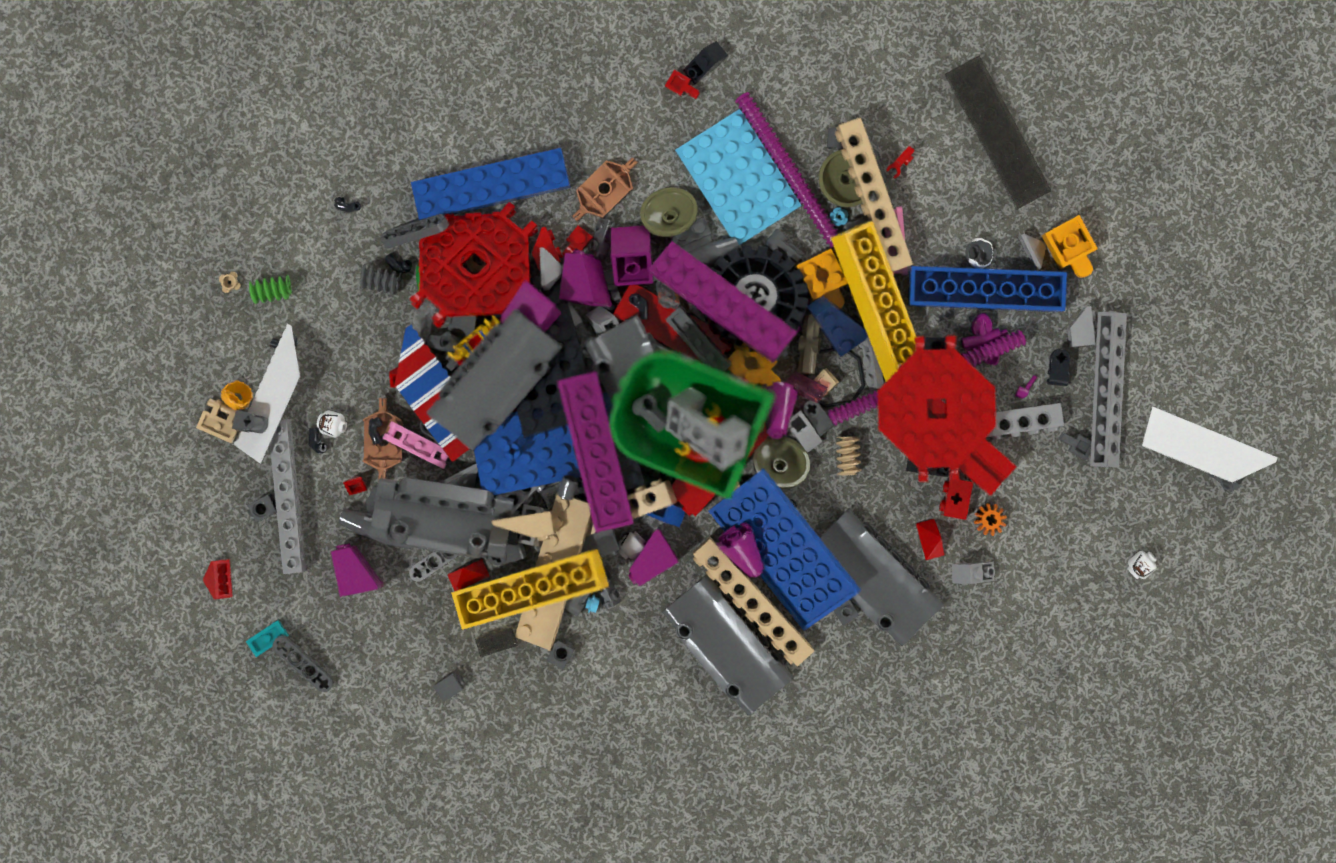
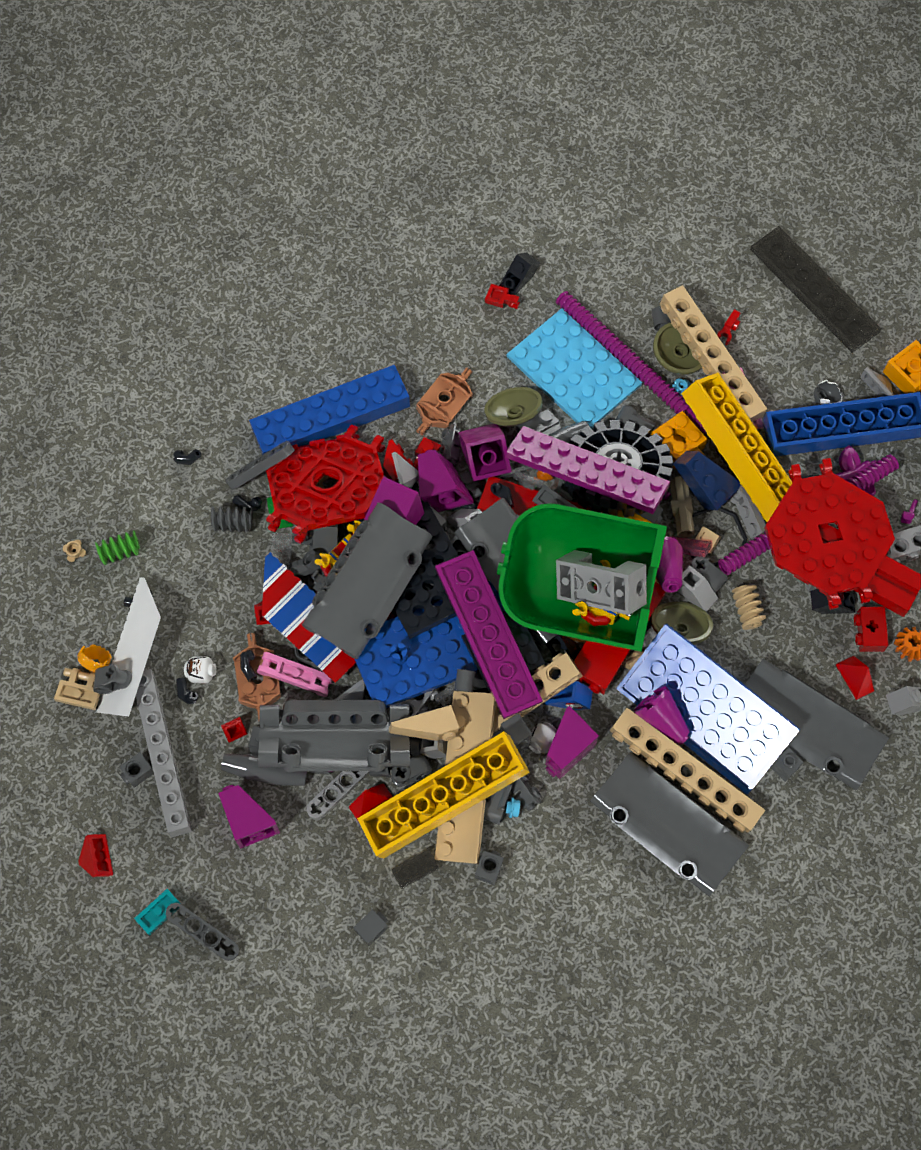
camera: 10 degrees left, 20 degrees down
(650, 412) = (532, 580): dark grey piece -> none

